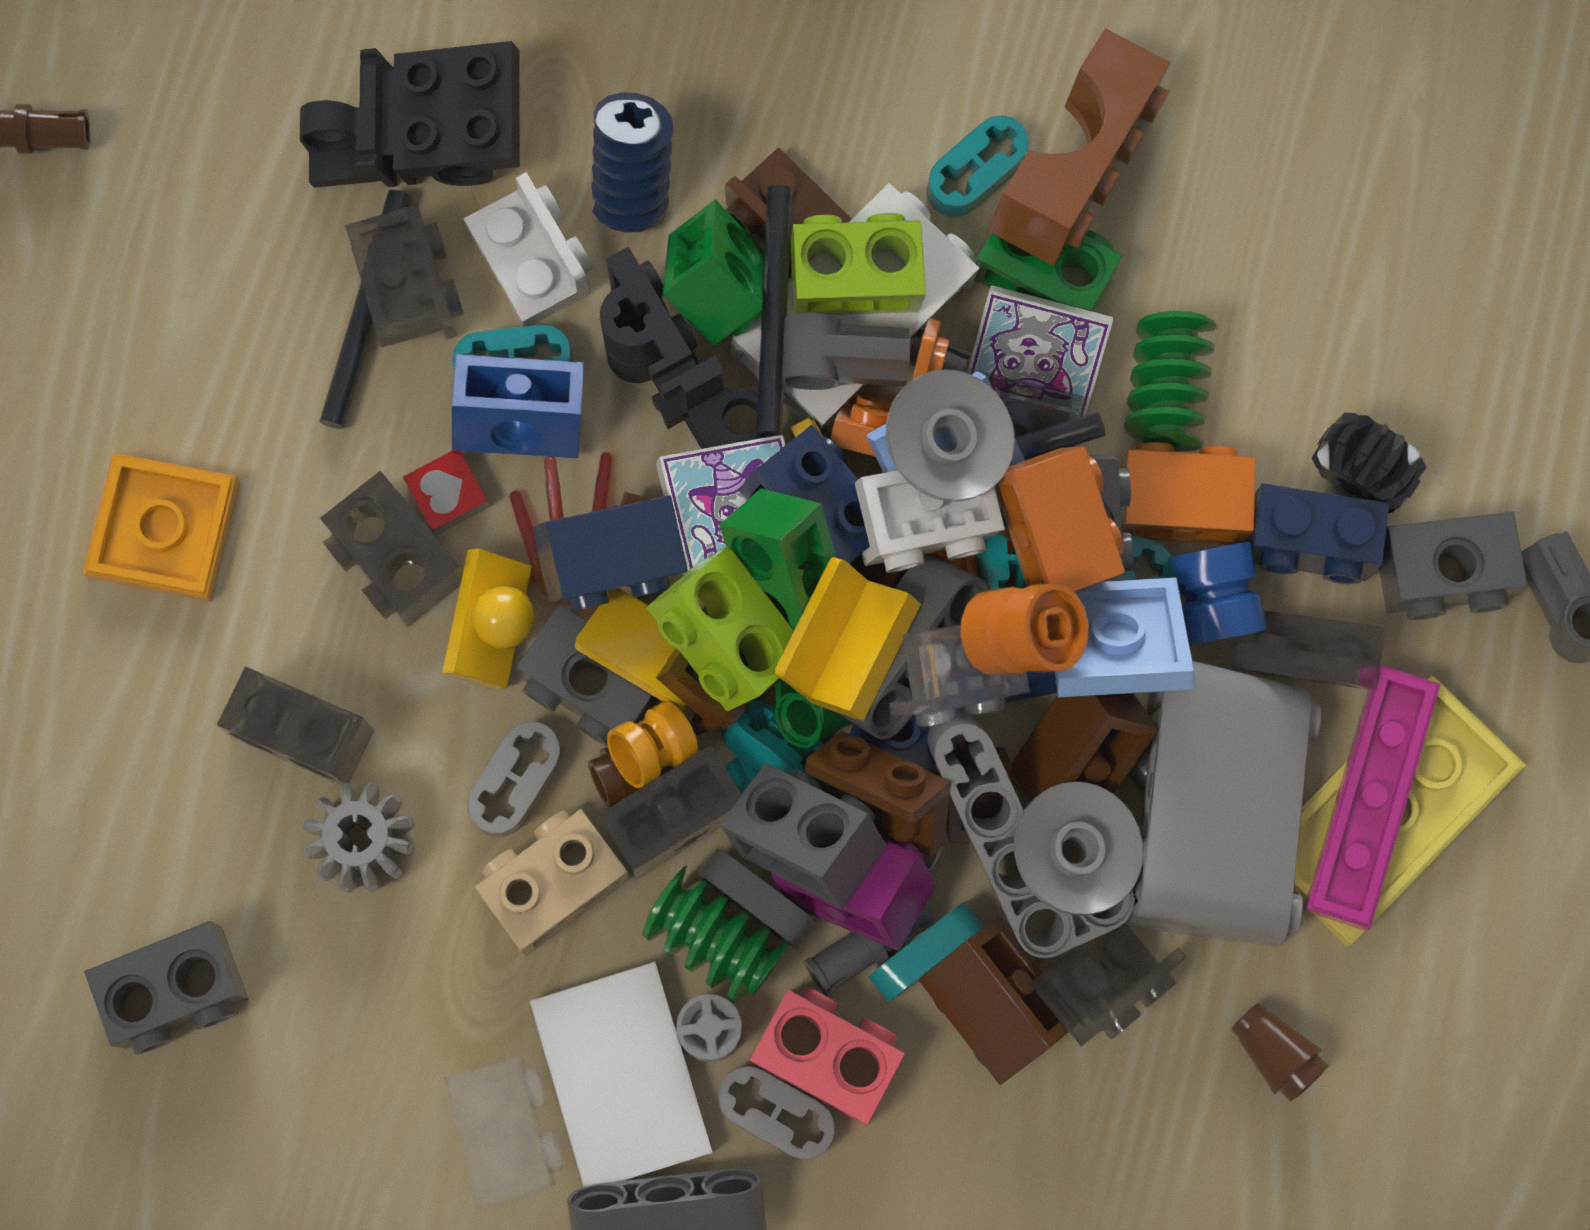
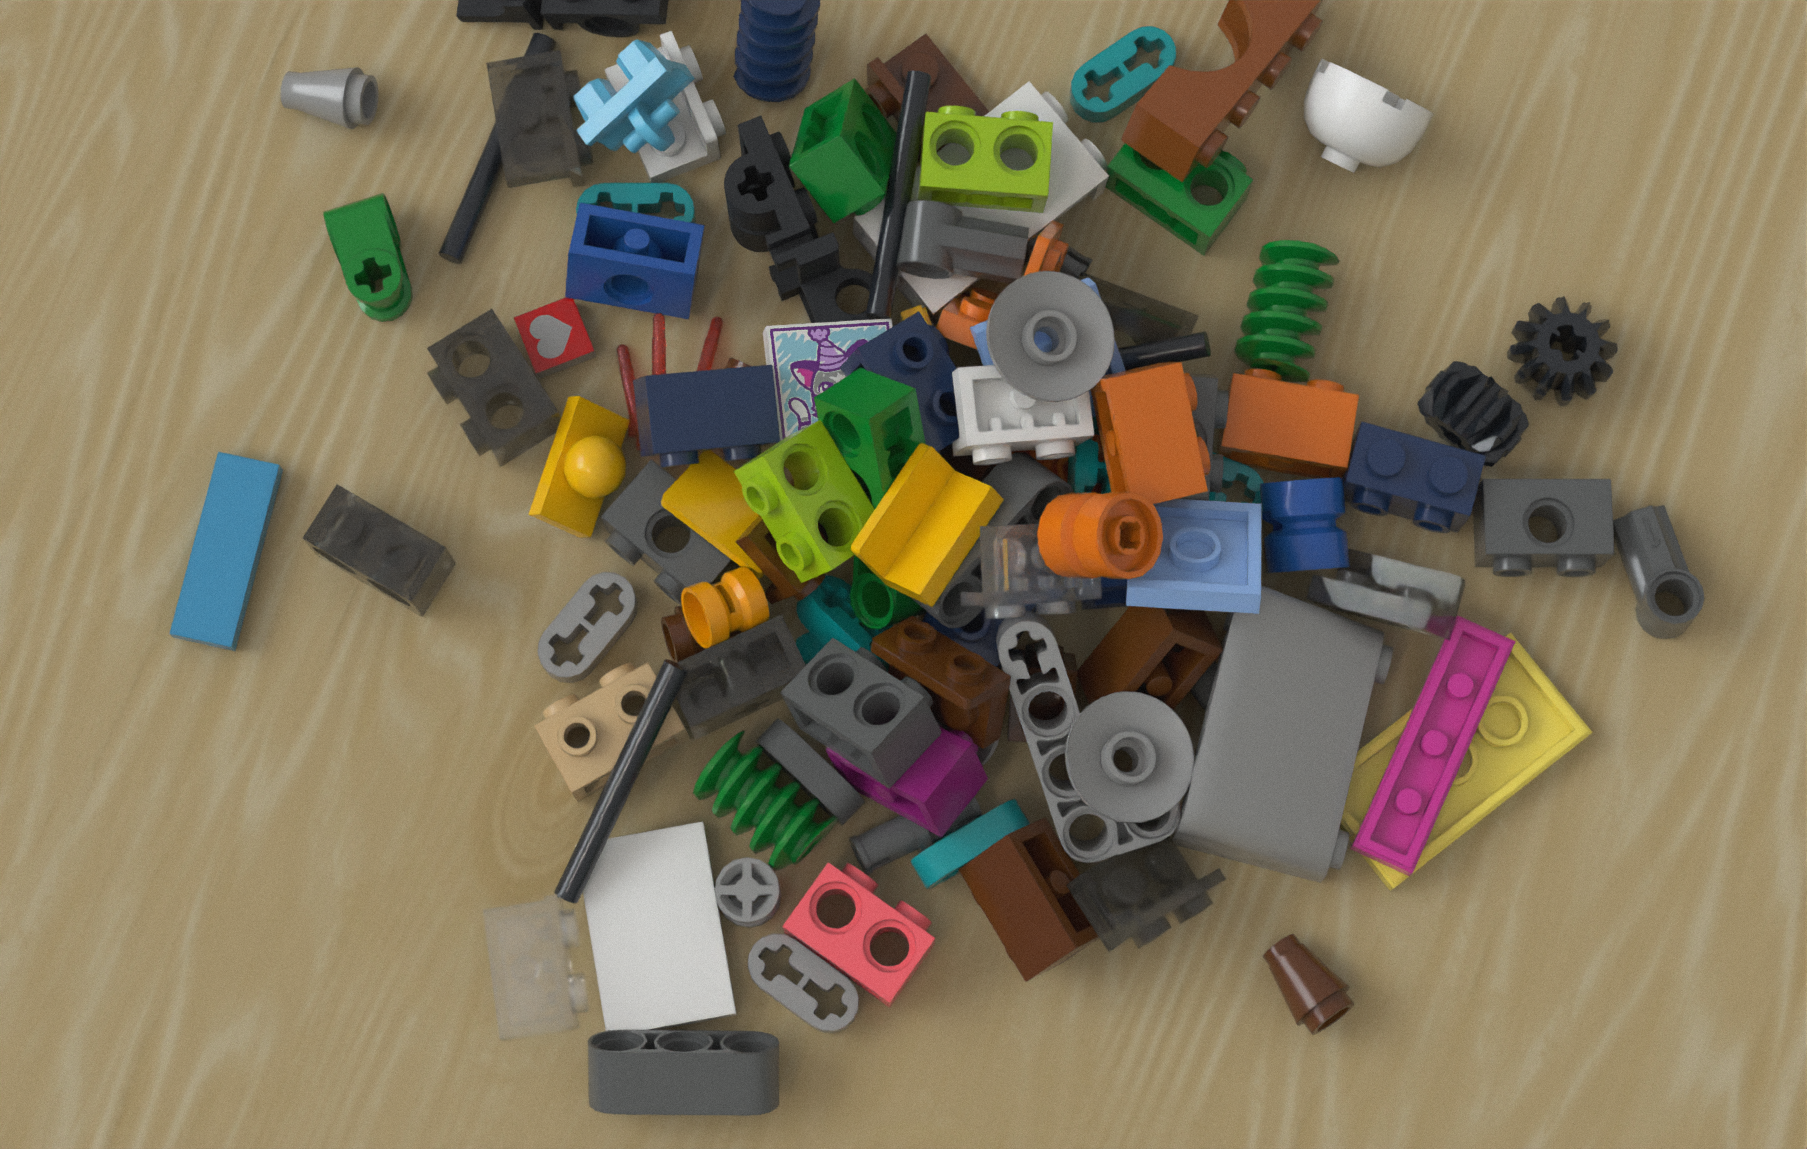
camera: 10 degrees right, 0 degrees up
(141, 746) = (226, 551): none -> dark azure tile
(161, 527) = (271, 340): light orange tile -> none
(164, 972) = (223, 771): dark grey brick -> none
(195, 275) = (333, 95): none -> light grey cone
(248, 426) = (368, 250): none -> green piece
(336, 841) = (404, 668): light grey gear -> none
(505, 252) = (640, 108): none -> medium azure hips
(569, 933) = (621, 781): none -> black bar
(1041, 342) = (1160, 256): tile -> none
(1219, 183) = (1360, 119): none -> white cylinder
(1457, 374) = (1547, 365): none -> black gear

